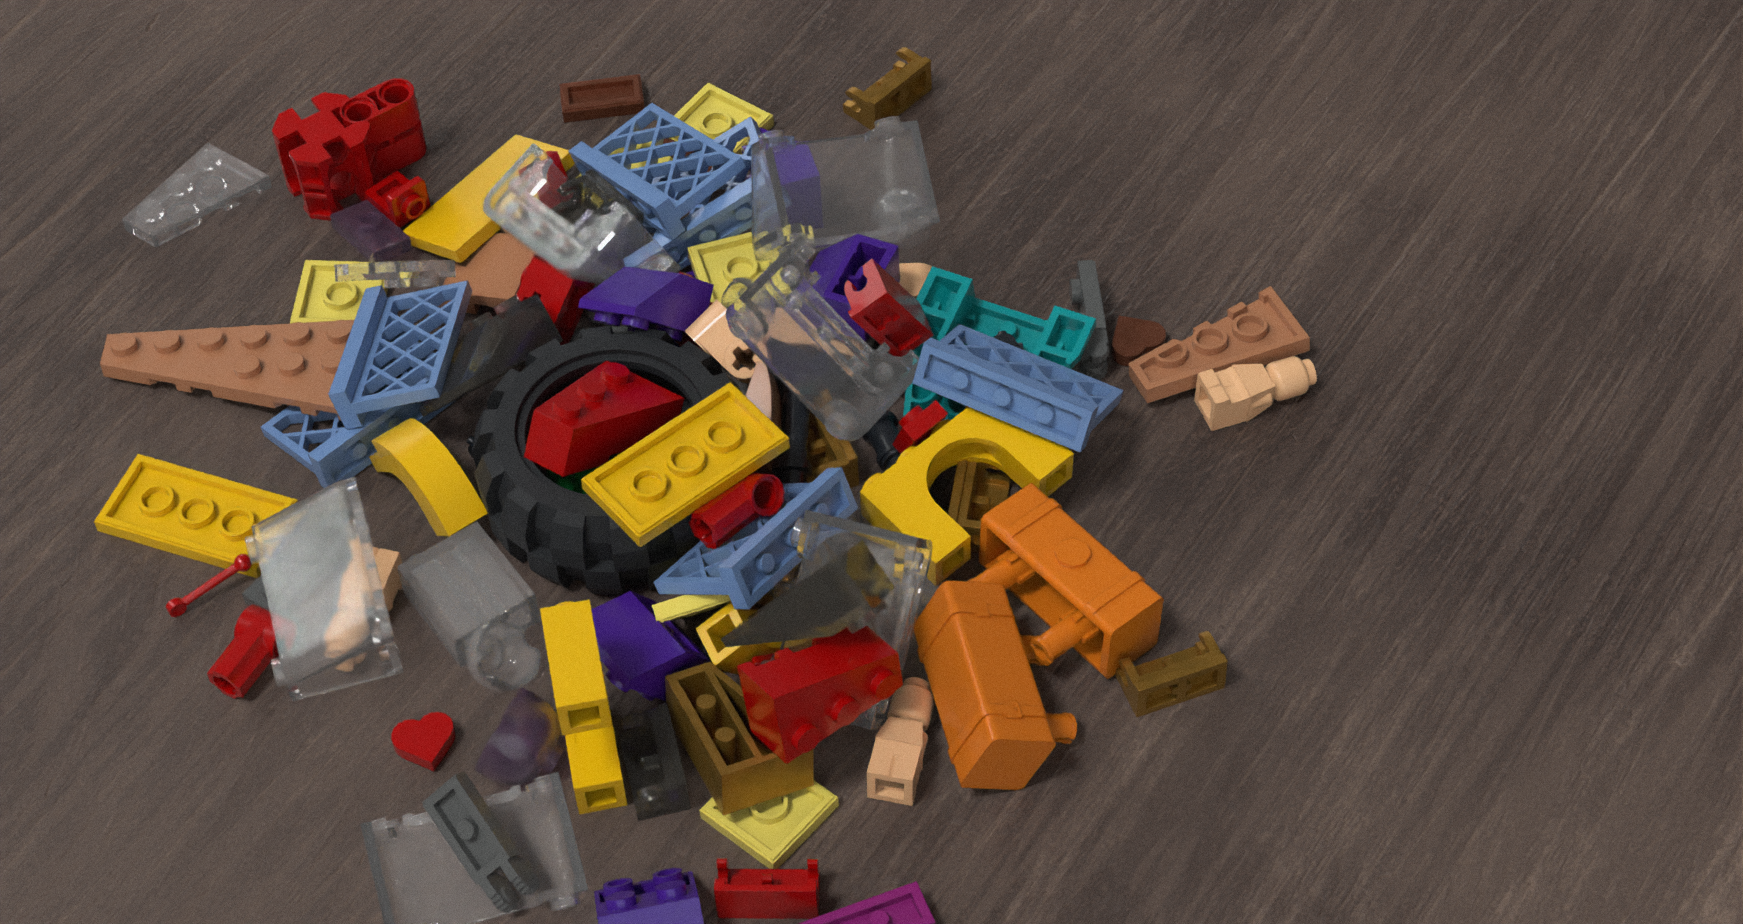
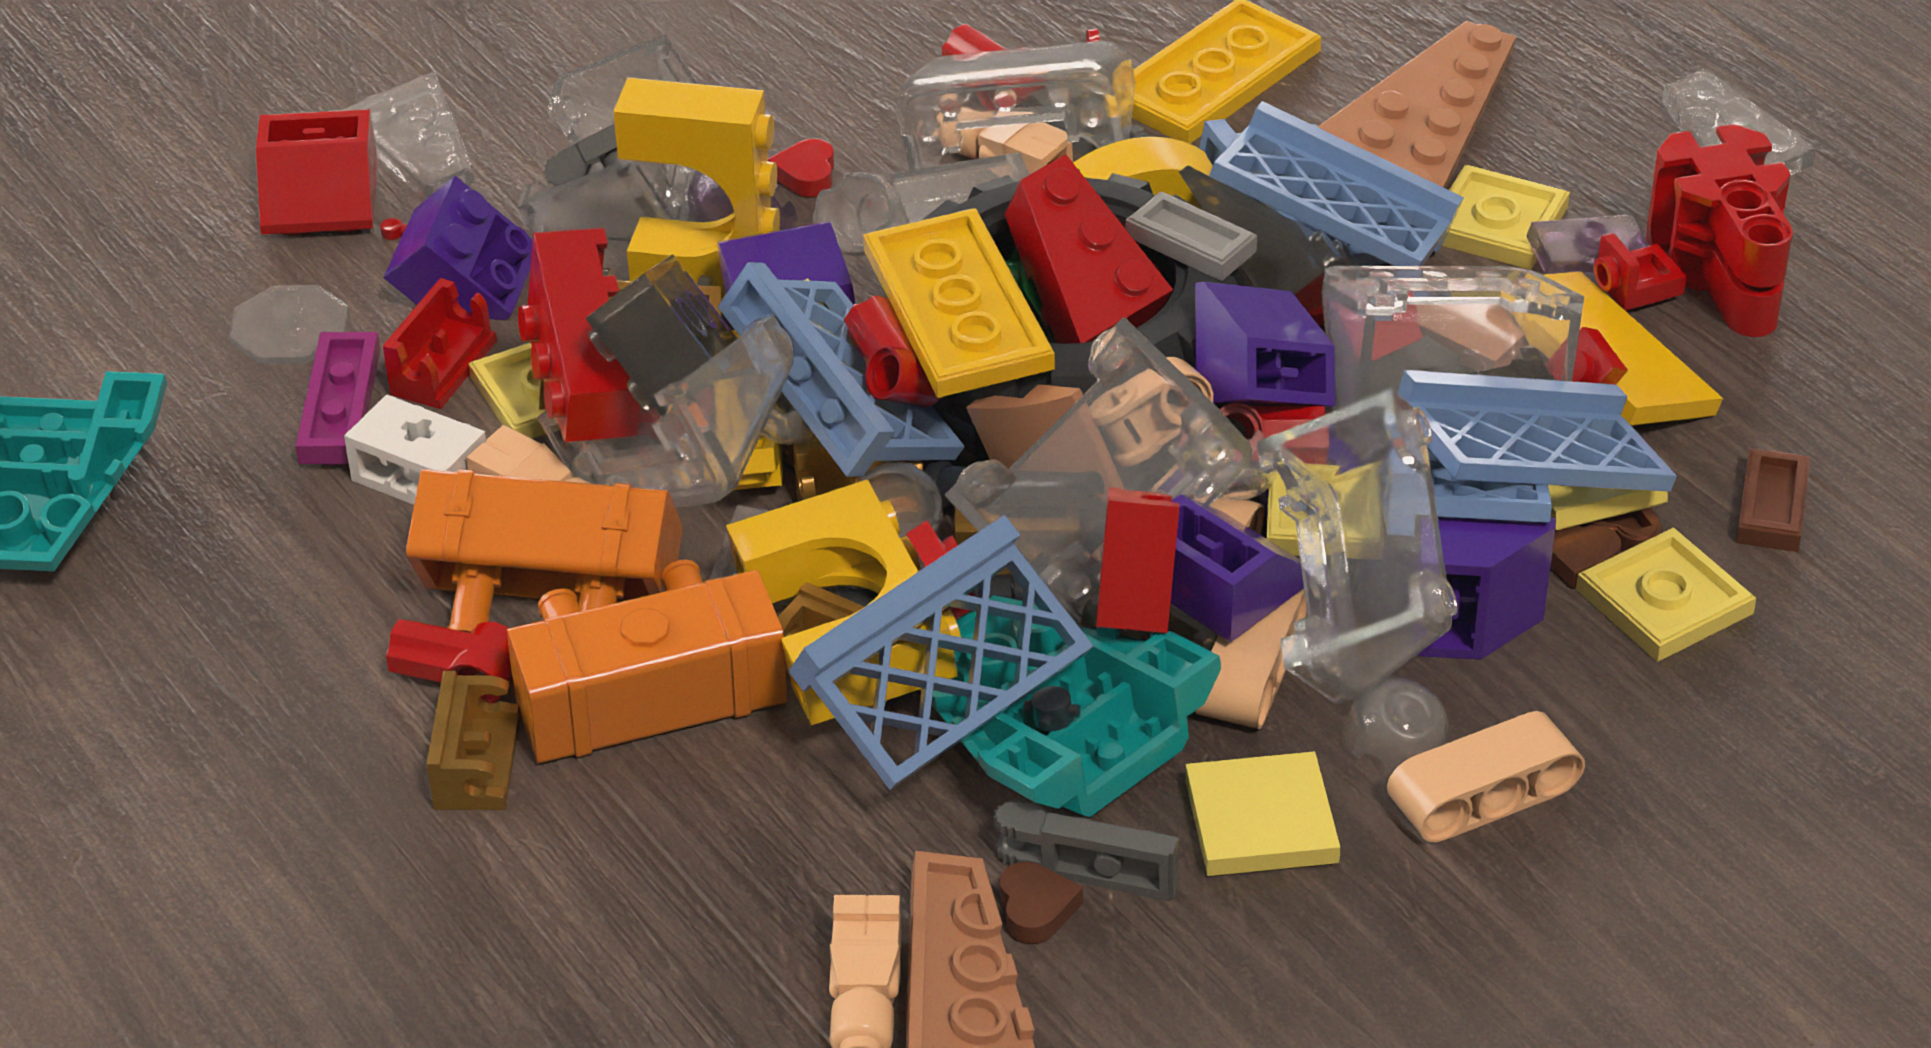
camera: 110 degrees right, 10 degrees down
(397, 273) = (1479, 224): clear wing -> none
(553, 355) = (1191, 236): none -> light grey tile
(892, 92) = (1656, 780): pearl gold hinge -> none
(906, 812) = (402, 439): none -> white brick
(952, 170) = (1485, 776): none -> light nougat beam
(1006, 259) = (1262, 813): none -> light yellow tile
(1098, 709) = (429, 650): none -> red piece

